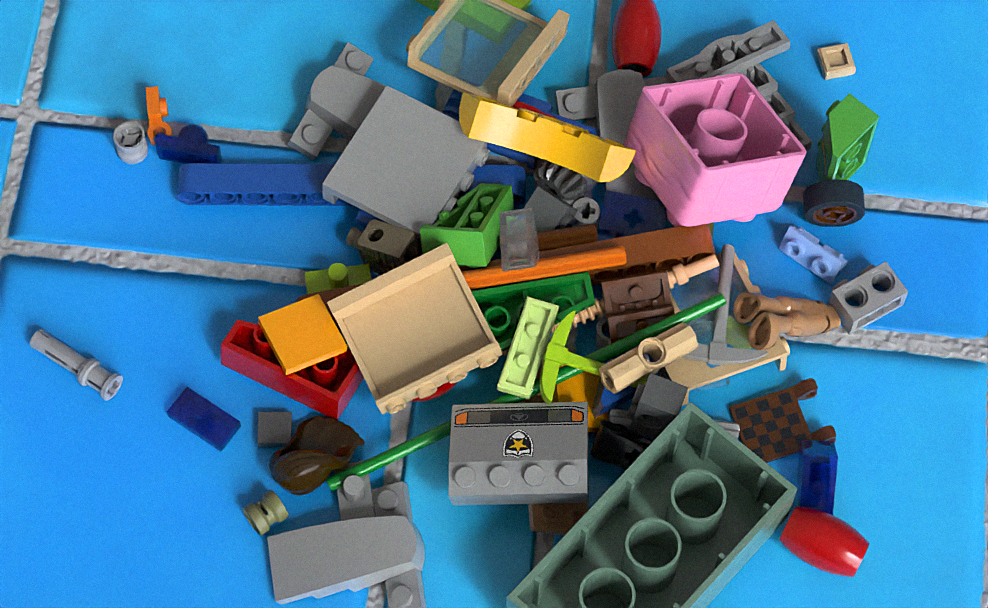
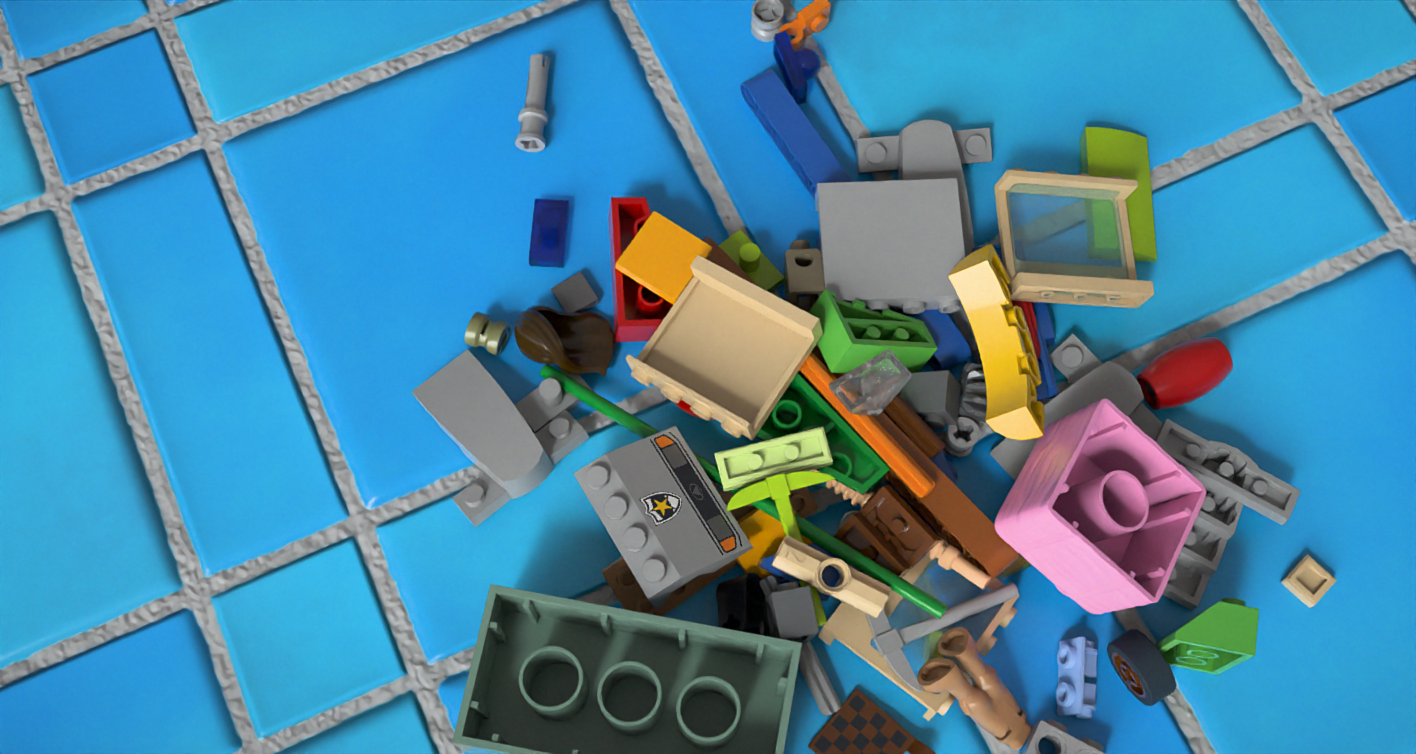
camera: 60 degrees right, 5 degrees up
(619, 204) = (980, 460): clear blue brick -> none

